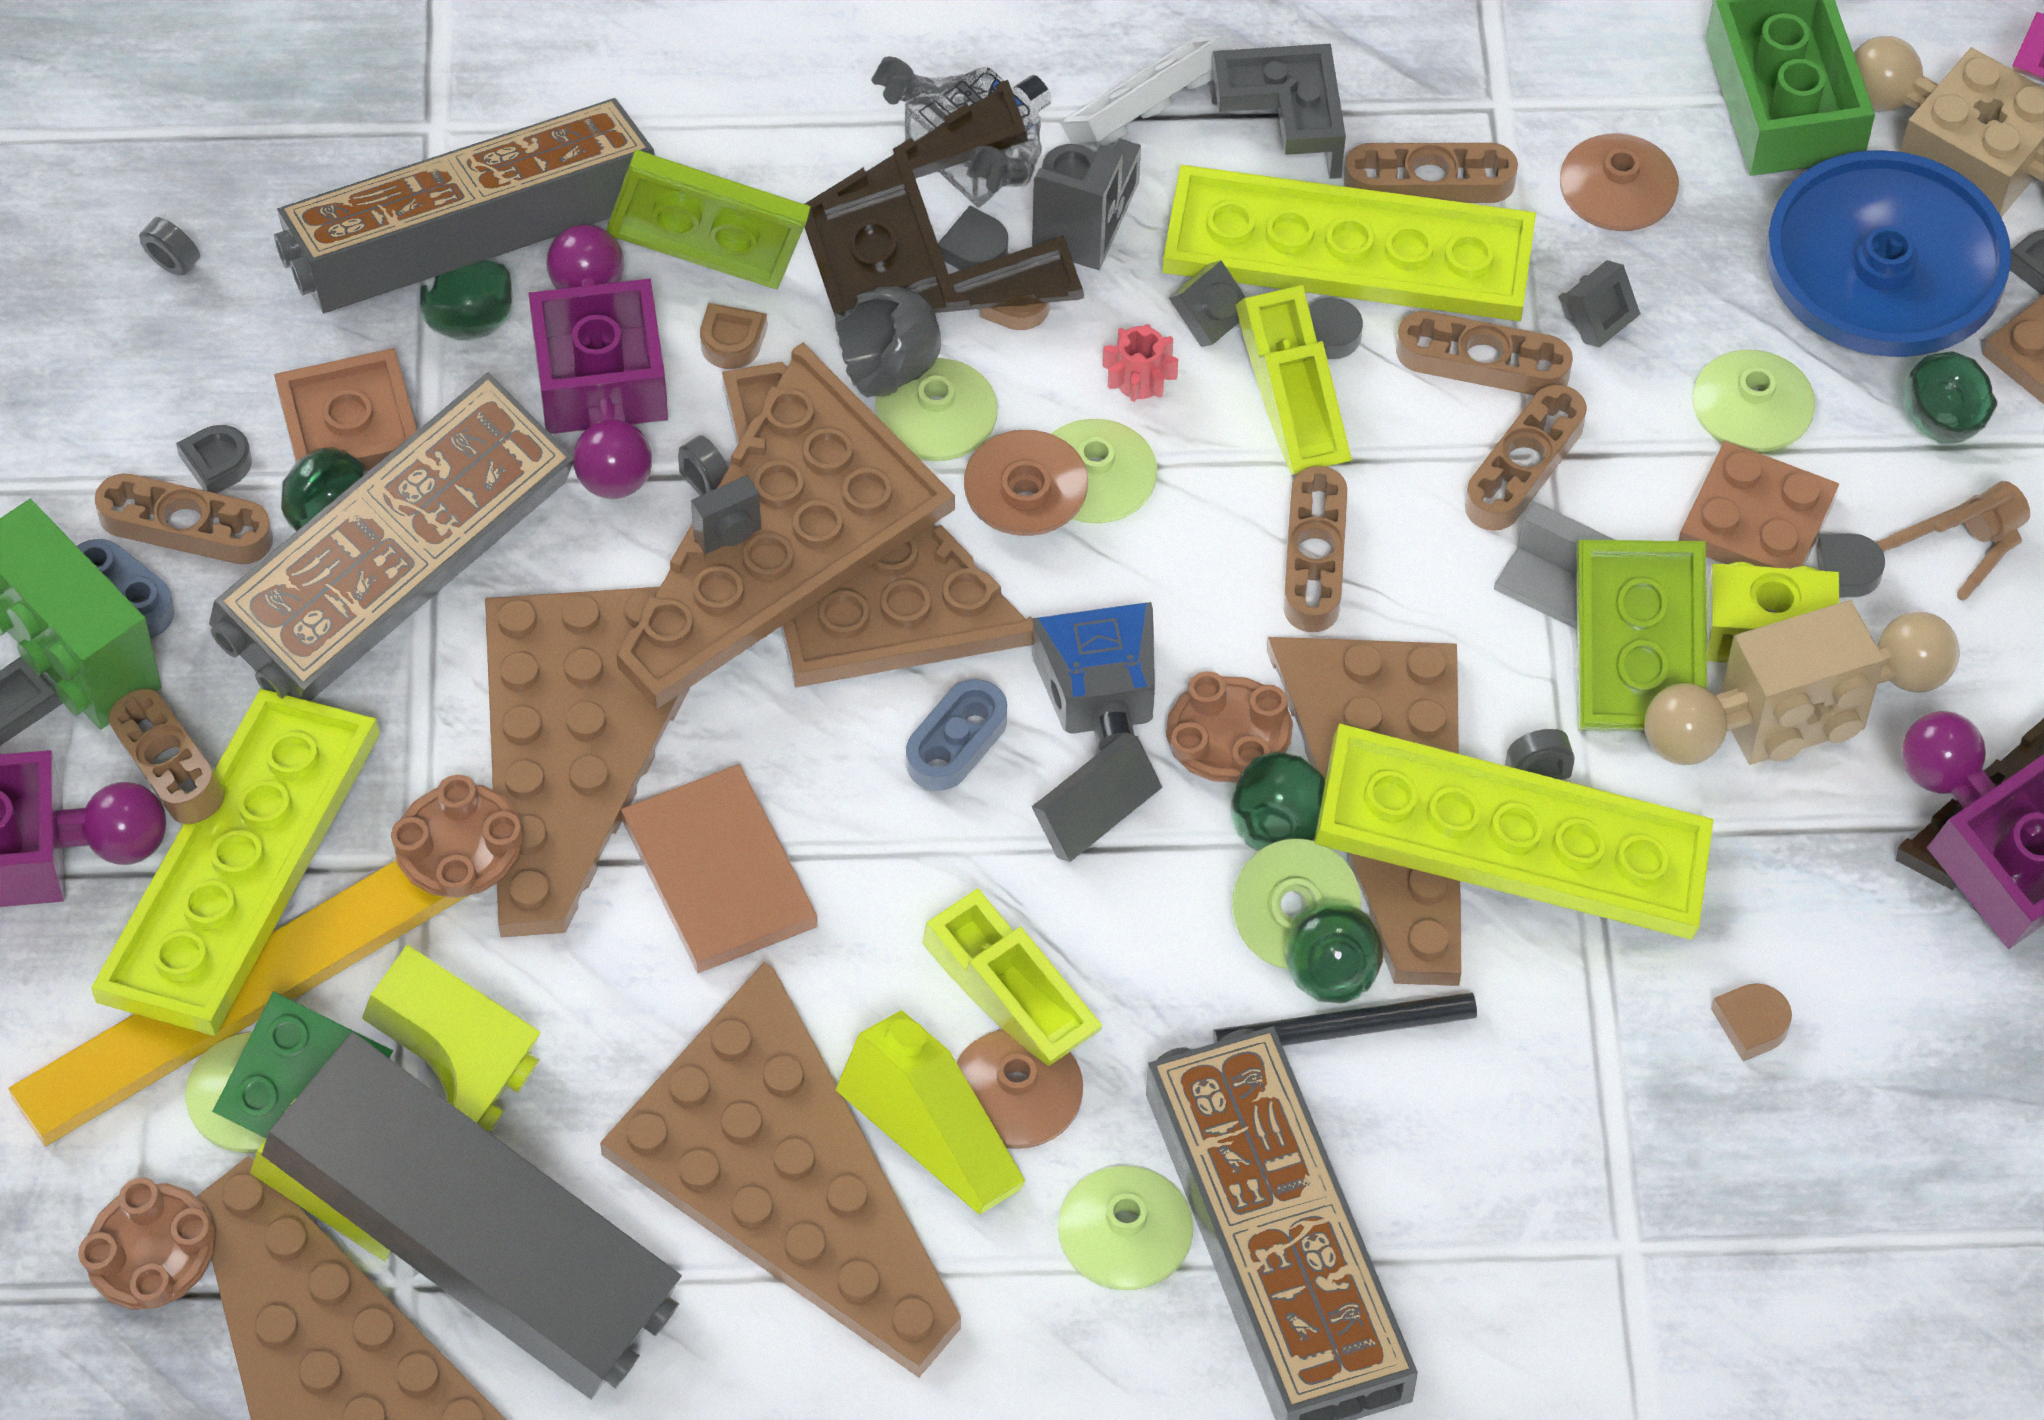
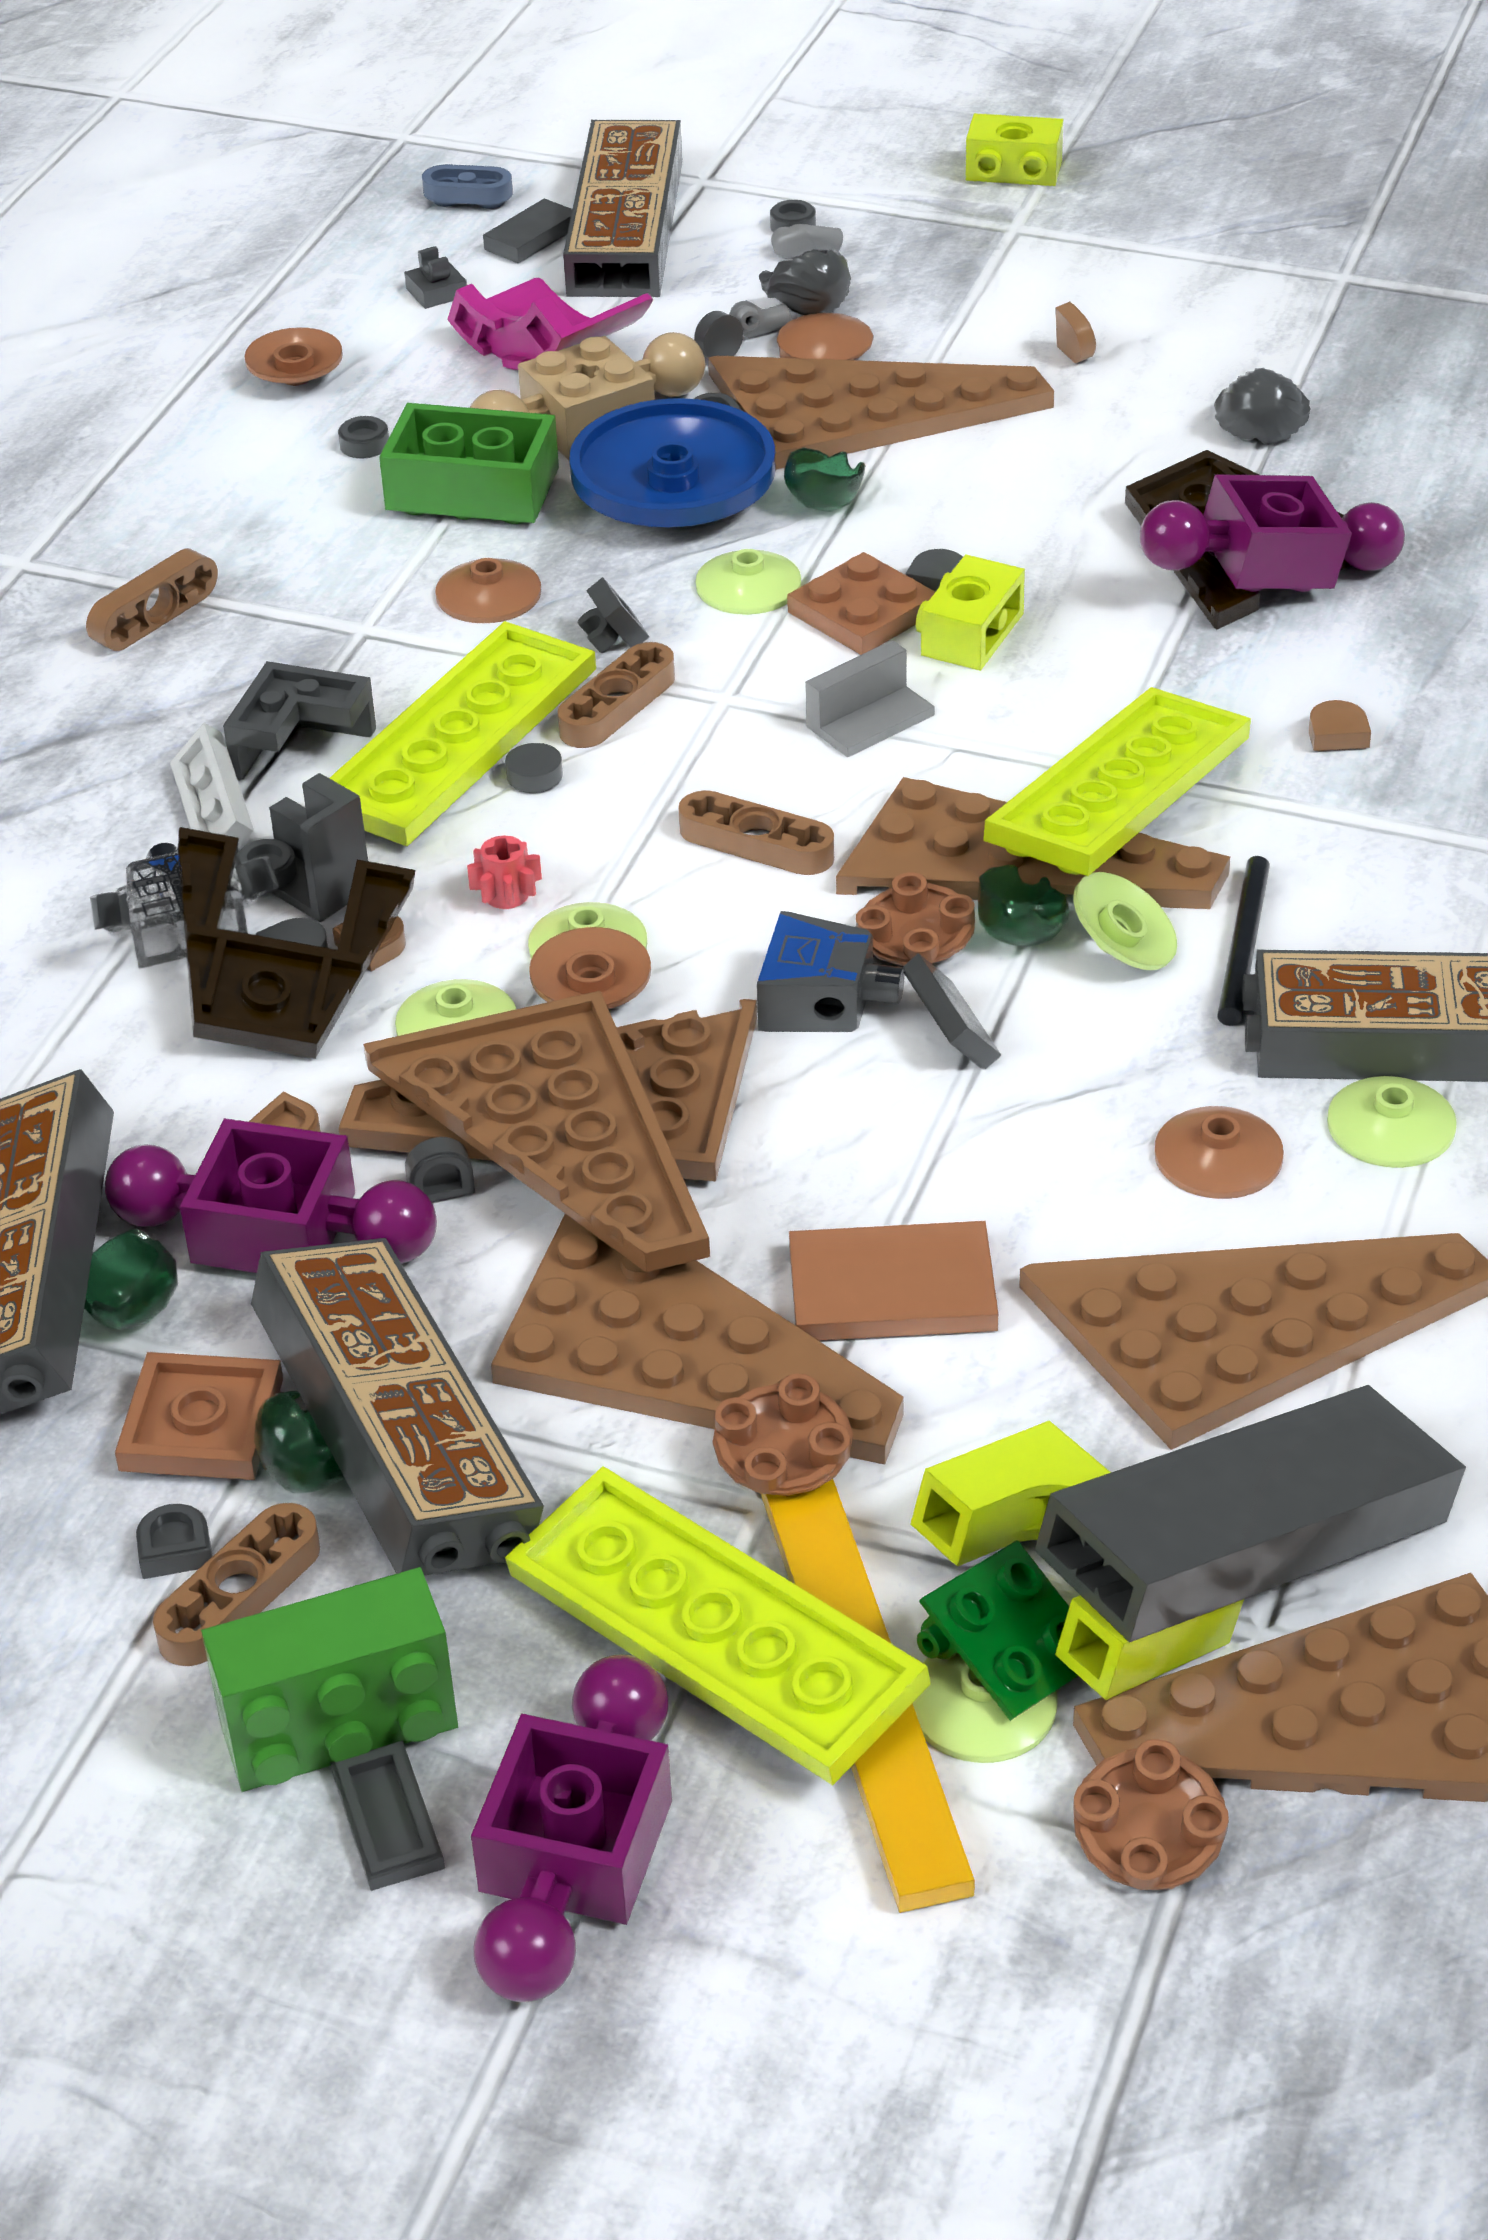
camera: 65 degrees left, 15 degrees down
(167, 776) = (523, 1636): medium nougat beam -> none
(707, 219) = (180, 1065): lime tile -> none
(726, 515) = (552, 1120): dark grey plate -> none
(888, 339) = (379, 999): dark grey hair -> none
(928, 1108) = (1218, 1193): neon yellow slope -> none
(951, 738) = (834, 1083): sand blue plate -> none
(1009, 978) = (1116, 1111): neon yellow slope -> none
(1209, 303) = (467, 815): dark grey plate -> none
(1294, 378) = (579, 789): neon yellow slope -> none
(1333, 951) = (1183, 911): clear green hair -> none
(1449, 156) = (412, 657): medium nougat beam -> none
(1525, 481) = (738, 717): medium nougat beam -> none
(1543, 753) = (1043, 752): dark grey tile -> none
(1637, 627) = (961, 670): lime tile -> none
(1800, 684) = (1064, 601): tan brick -> none
(1987, 516) = (939, 492): medium nougat plant -> none

